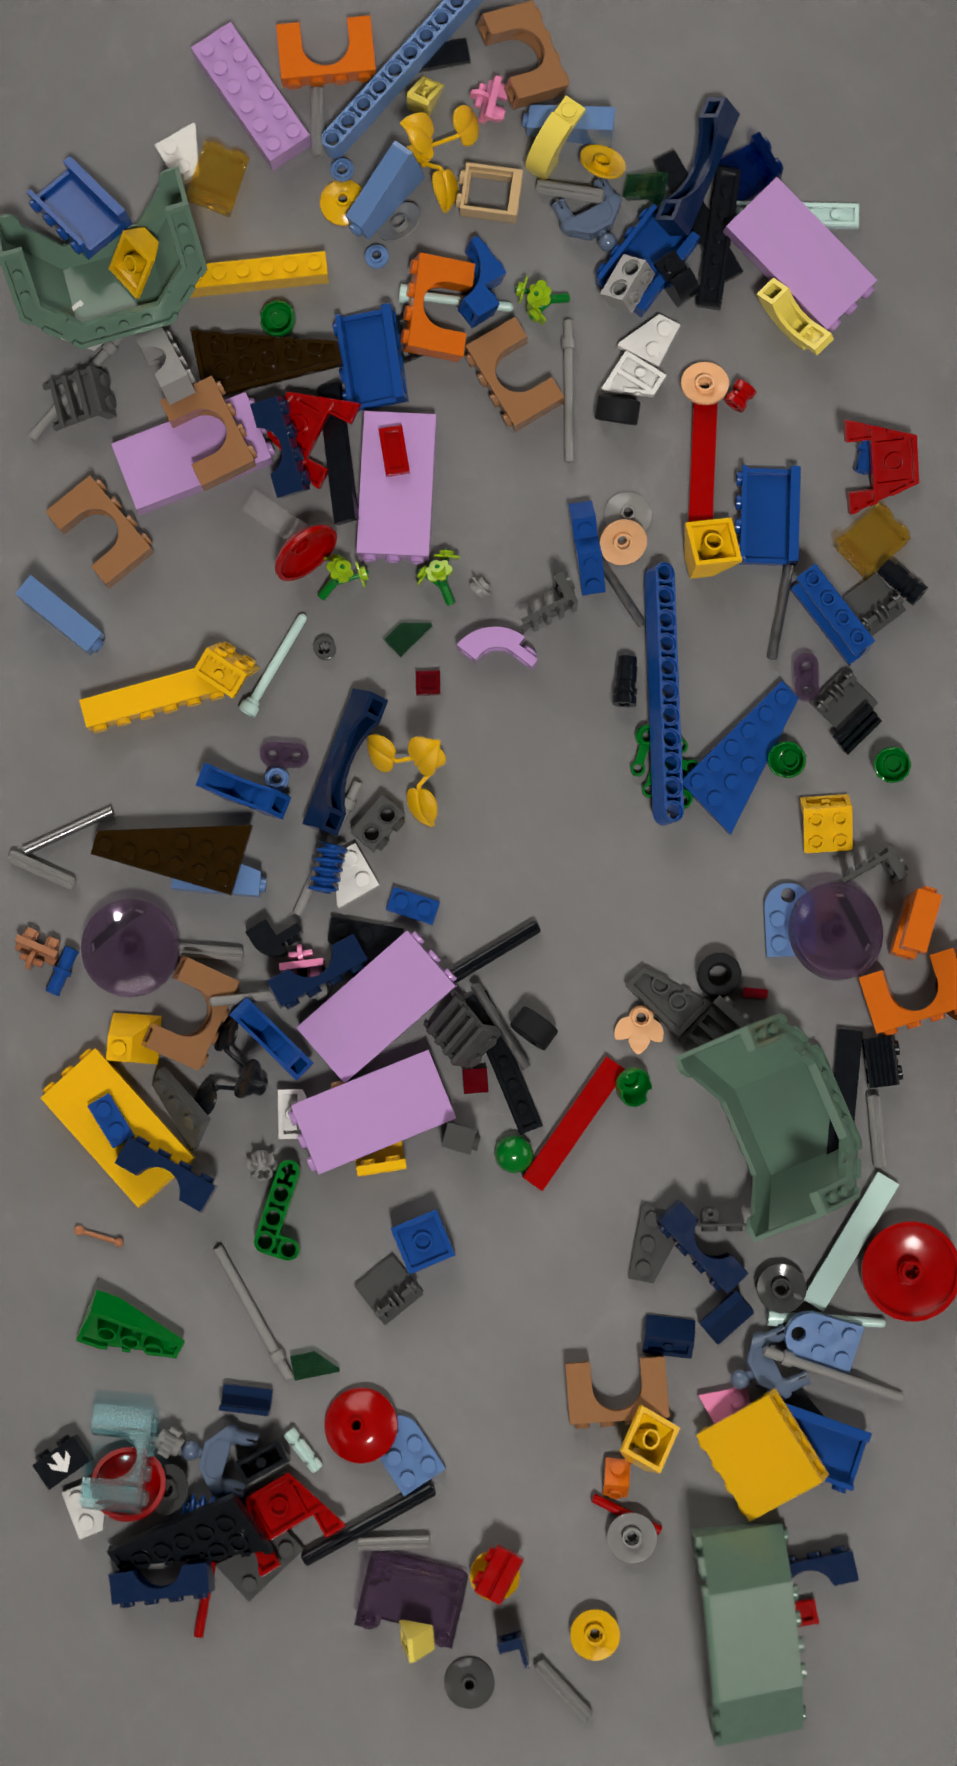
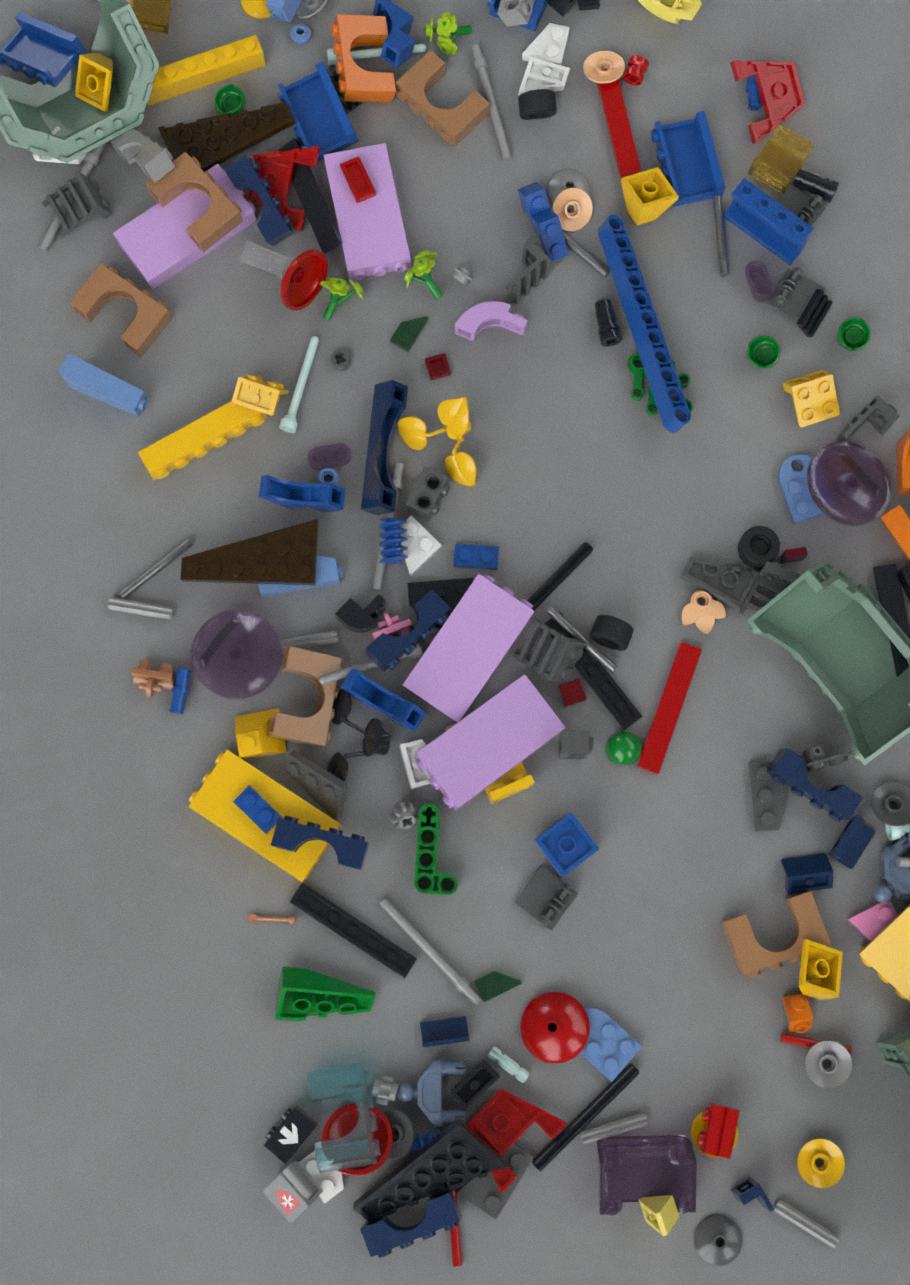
camera: 20 degrees left, 5 degrees down
(50, 1518) = (293, 1191): none -> piece
(179, 1270) = (353, 930): none -> black tile
(633, 1086) = (712, 661): green hair -> none
(732, 768) = (719, 370): blue wing -> none

